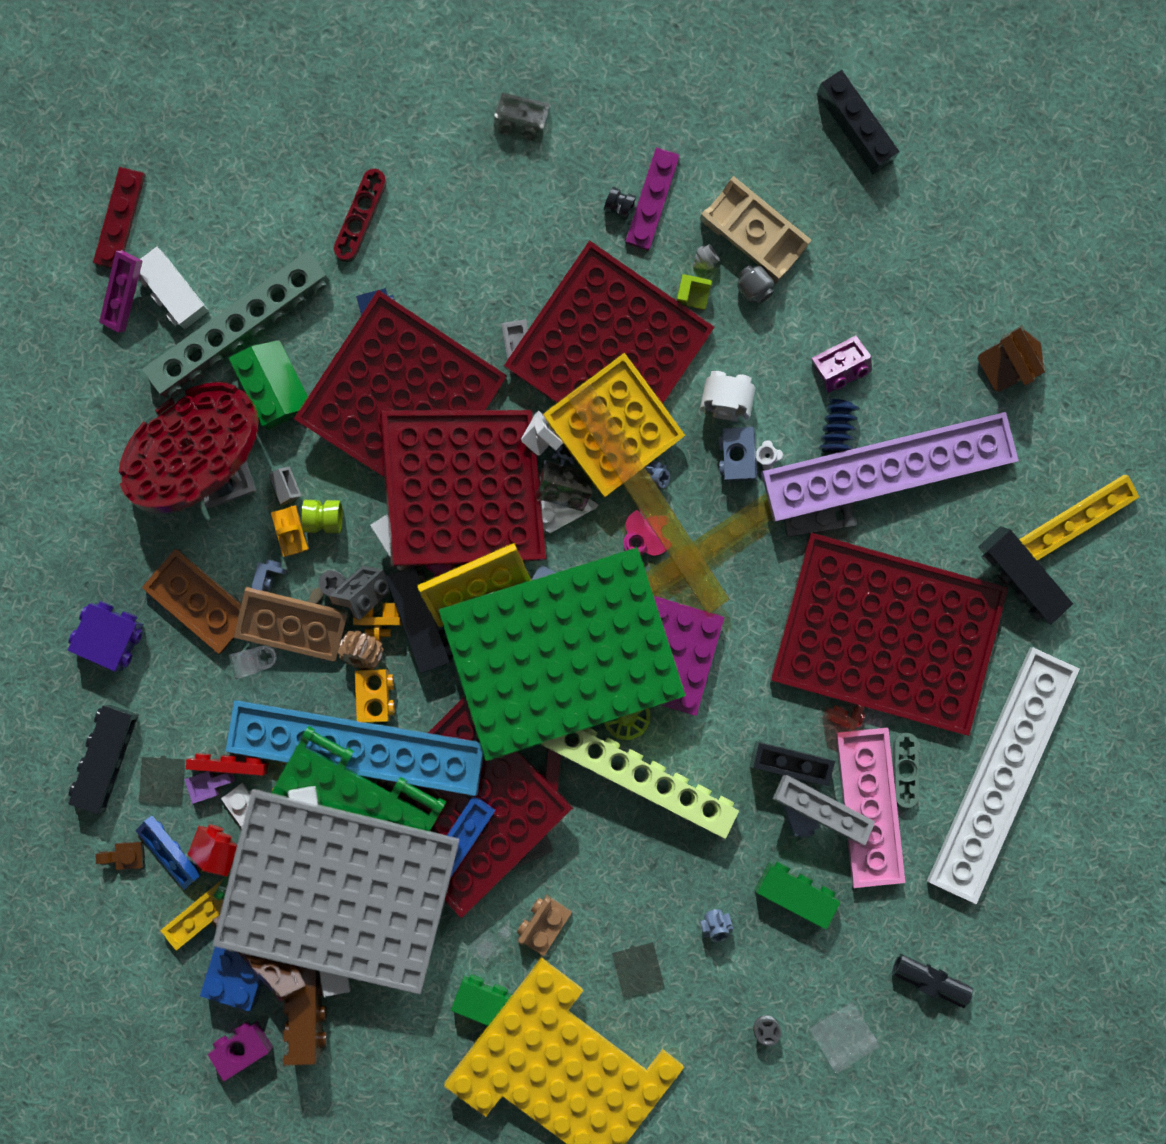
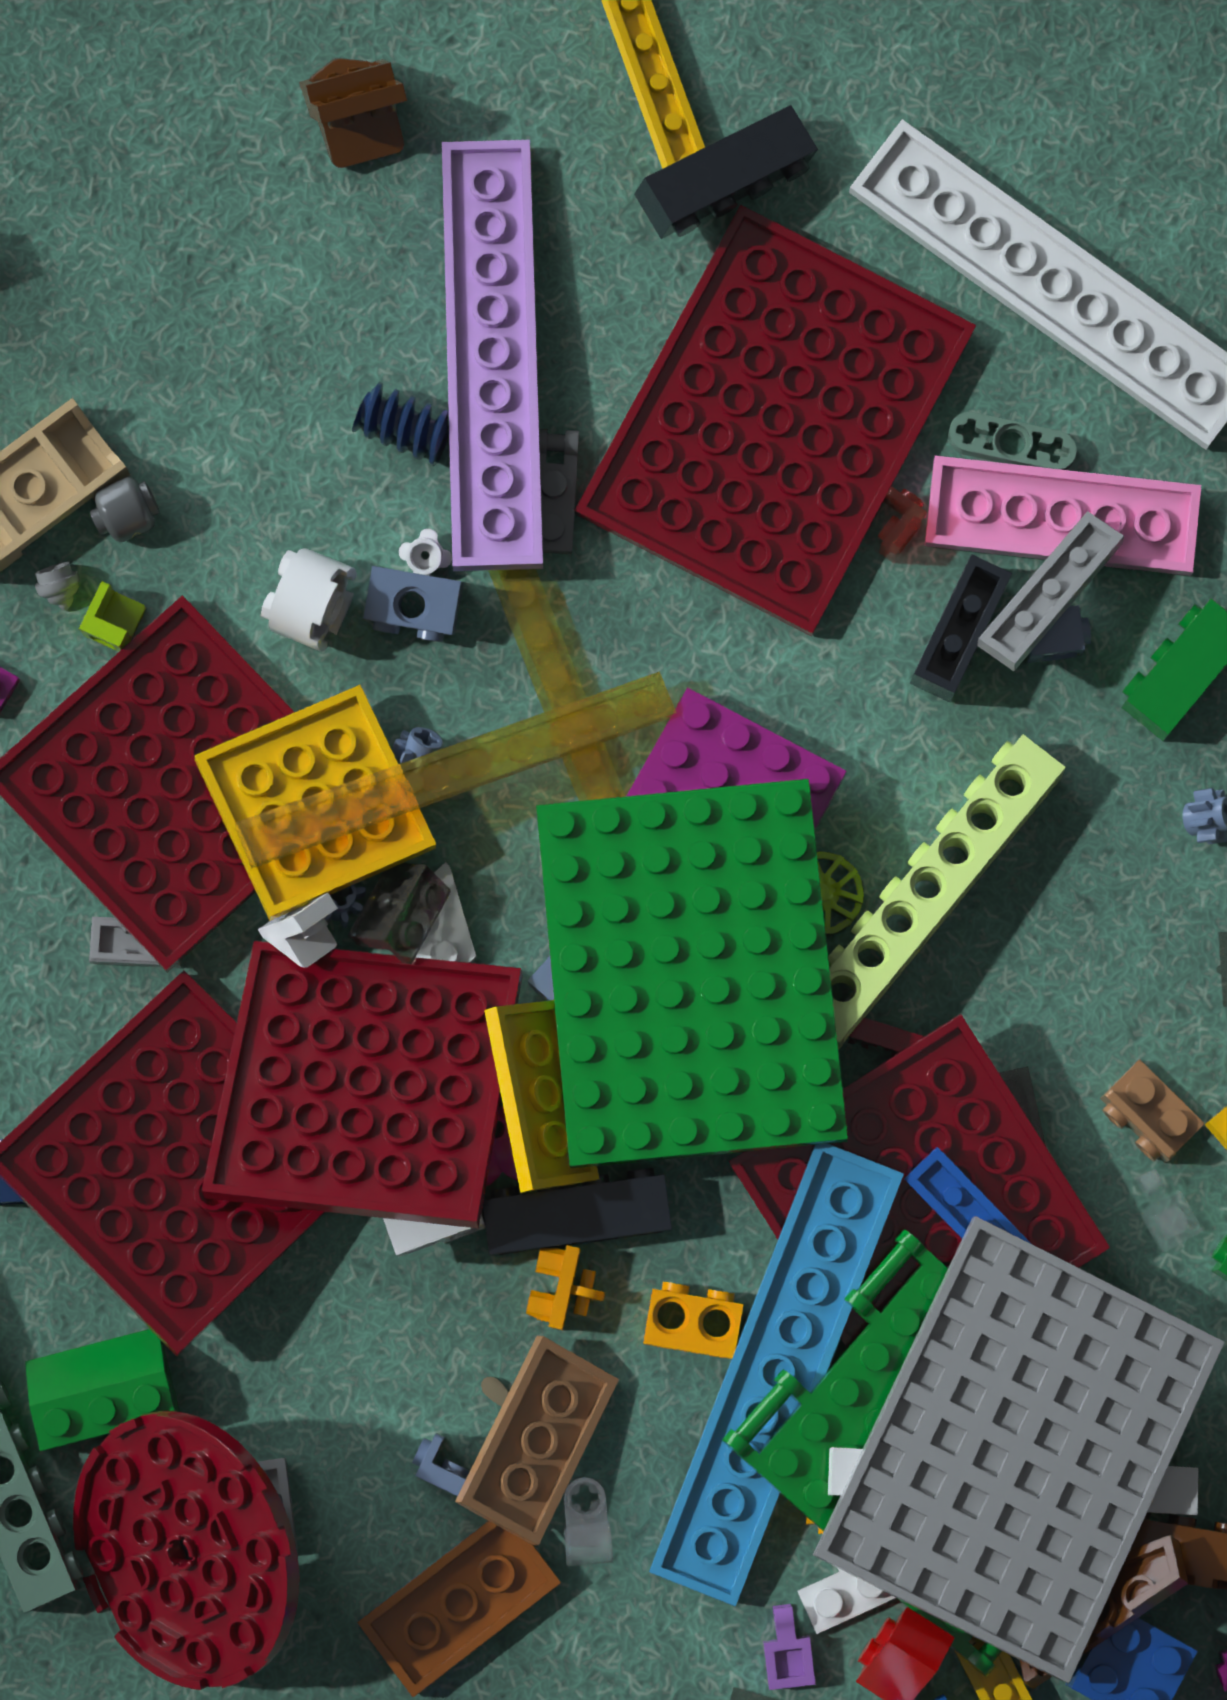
camera: 75 degrees left, 5 degrees down
(227, 764) = (758, 1608): red plate -> none
(285, 485) = (288, 1402): light grey piece -> none
(289, 531) = (371, 1409): light orange hips -> none
(325, 516) = (358, 1346): lime wheel -> none
(333, 582) = (484, 1359): flat silver wheel -> none
(360, 650) = (609, 1326): medium nougat gear -> none
(362, 591) = (505, 1301): dark grey bracket -> none
(639, 528) = (507, 795): dark pink plate -> none
(843, 364) = (296, 393): bracket -> none

